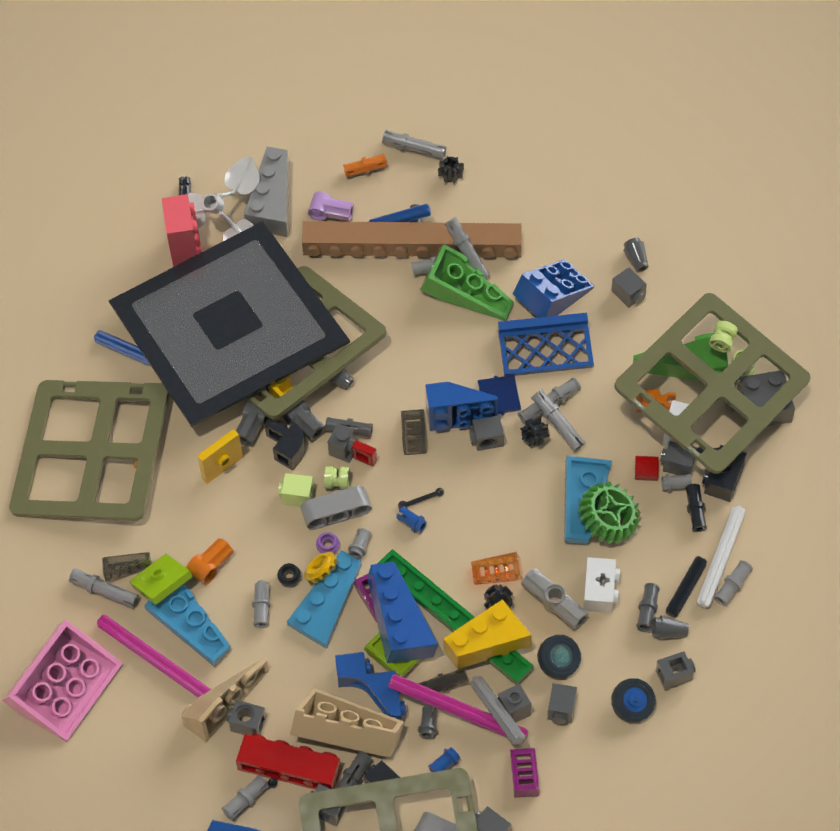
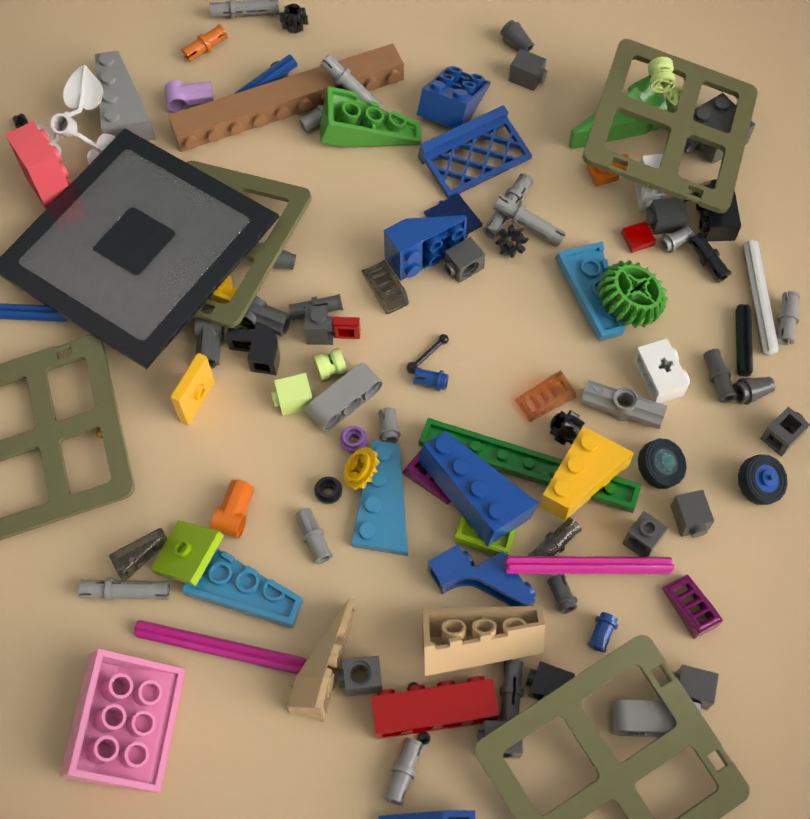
camera: 25 degrees left, 5 degrees up
(497, 710) = (635, 550): light grey axle -> none

